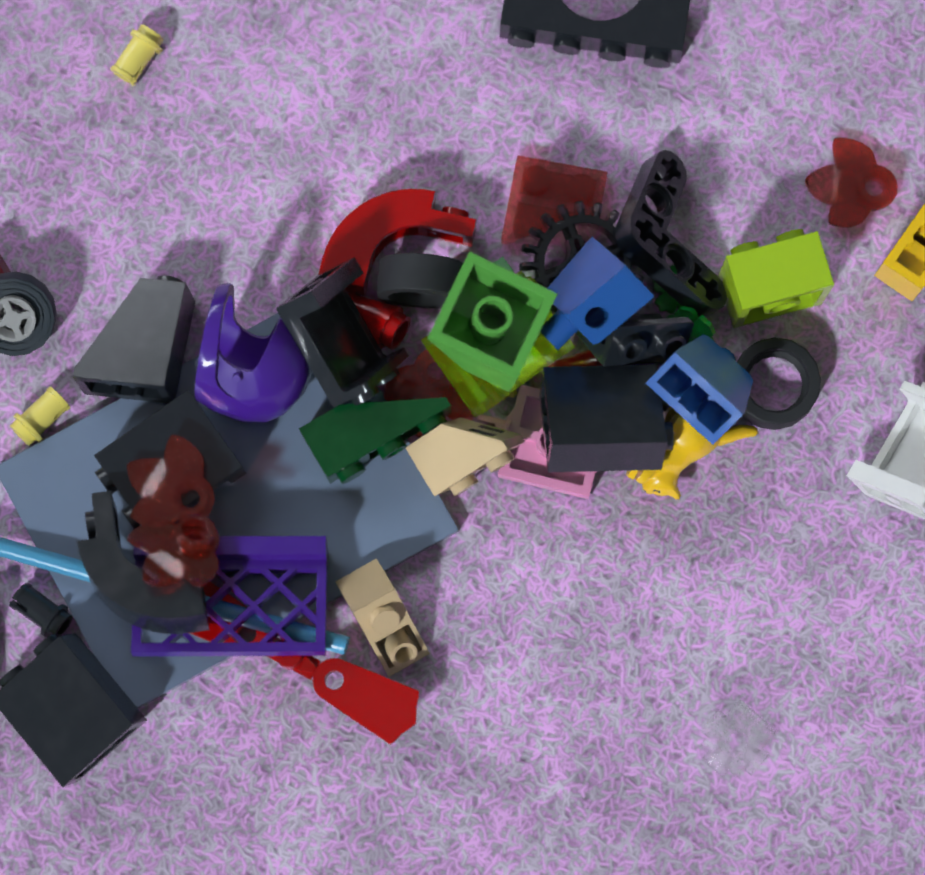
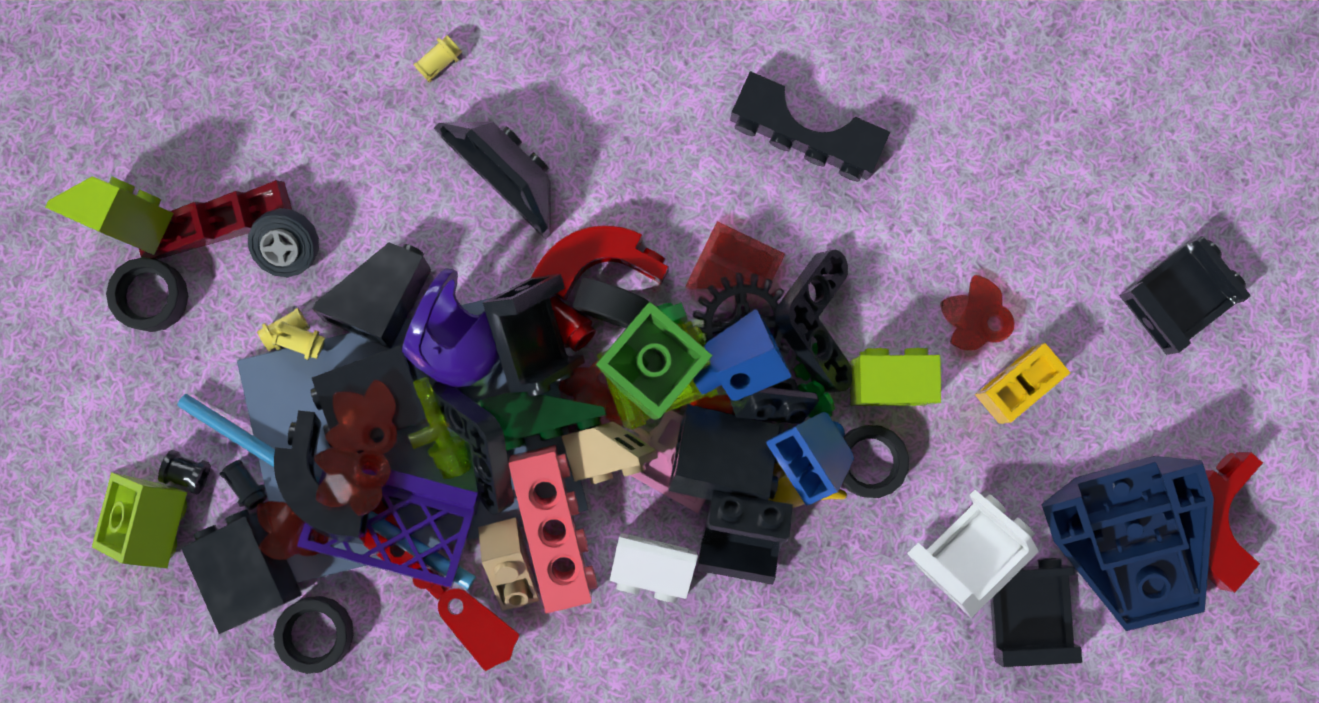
camera: 15 degrees right, 5 degrees up
(64, 420) = (301, 340): none -> light yellow pin
(109, 643) = (283, 530): none -> clear red plate
(136, 762) = (283, 638): none -> black tyre
(250, 158) = (504, 167): none -> black wedge
(279, 503) = (449, 452): none -> clear neon green piece
(323, 474) = (485, 442): none -> black beam
(447, 629) = (557, 588): none -> coral brick
(554, 570) = (653, 567): none -> white slope
(650, 504) = (744, 537): none -> black panel

